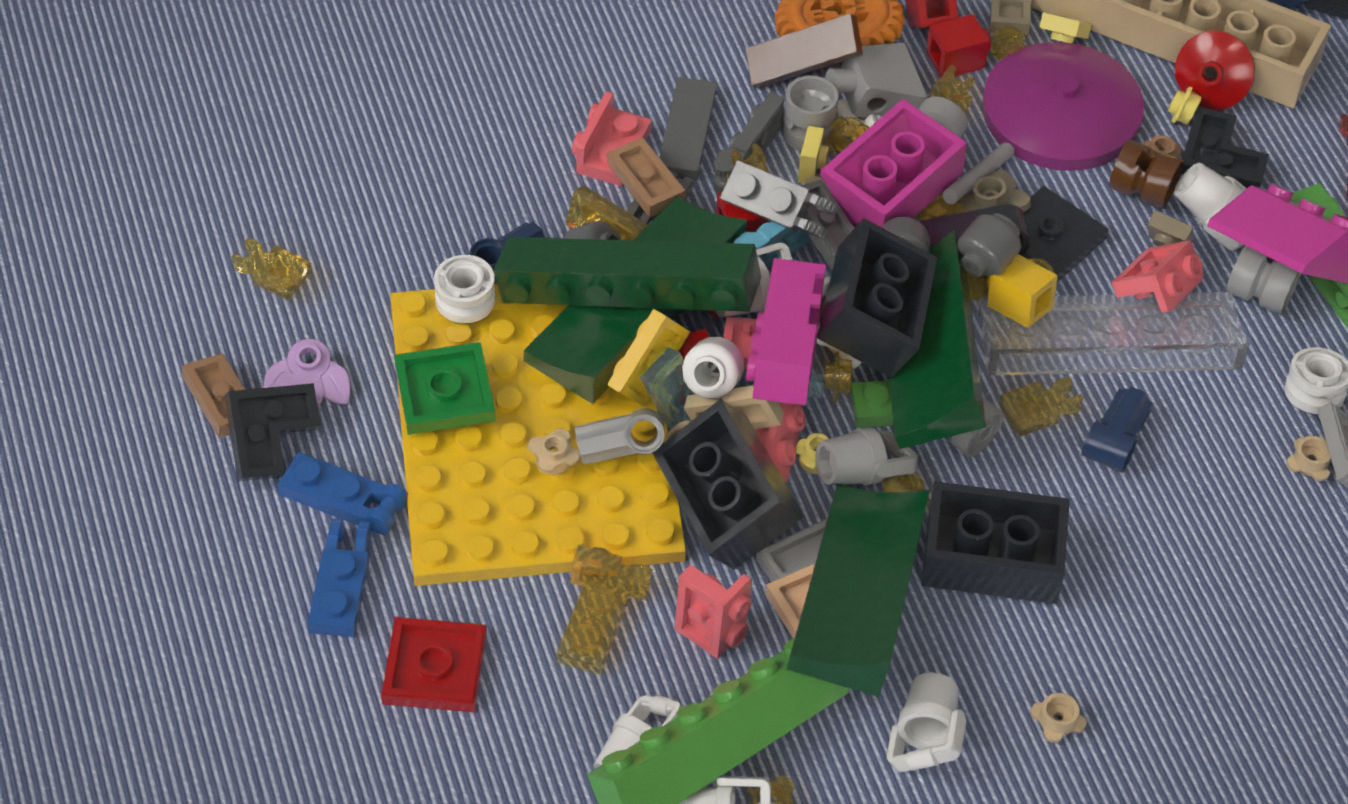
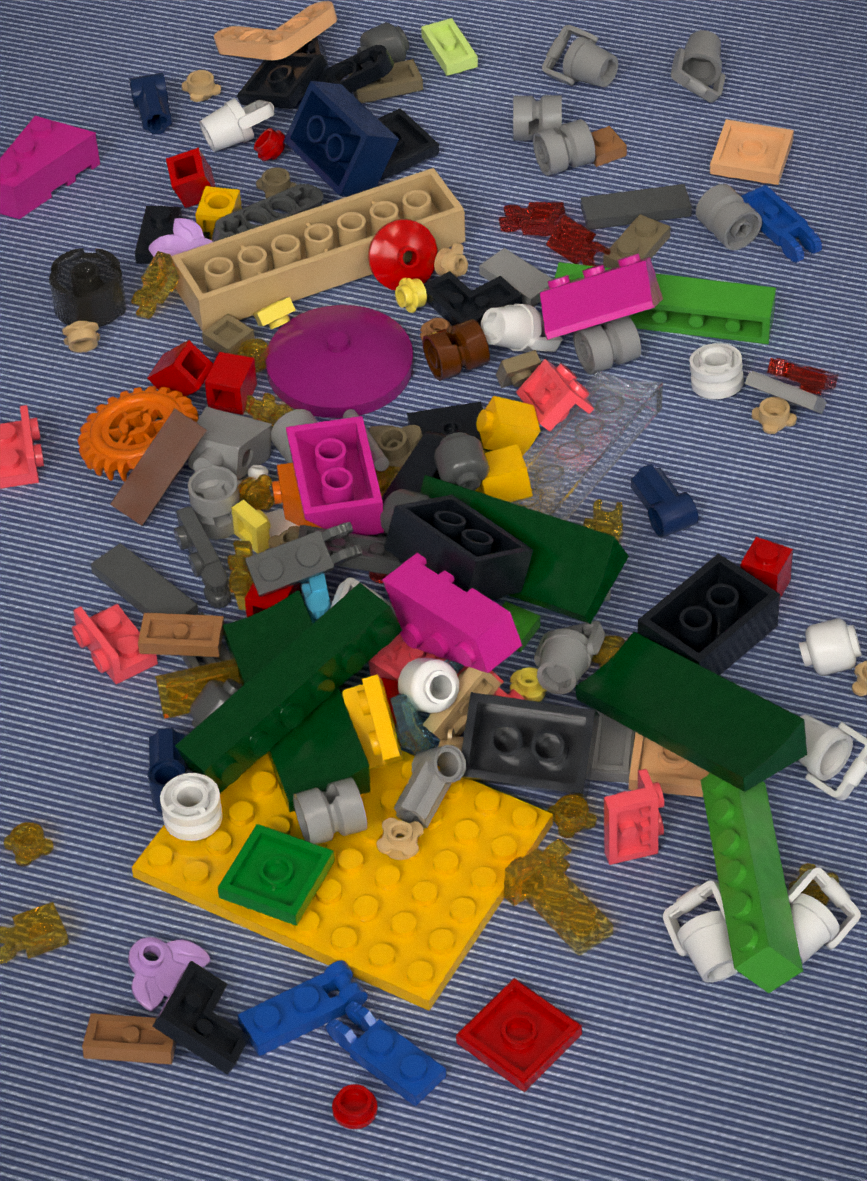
camera: 50 degrees left, 5 degrees down
(269, 587) = (354, 1107): none -> red plate
(363, 213) = (27, 834): none -> clear yellow plate
(530, 382) = (330, 811): none -> light grey wheel
(698, 557) = (572, 807): none -> clear yellow plate
(1061, 658) = (830, 647): none -> white head
(1089, 261) = (507, 423): none -> yellow brick
(1103, 555) = (769, 563): none -> red brick
(1252, 103) = (451, 260): none -> tan plate
(1288, 162) = (518, 273): none -> light grey tile

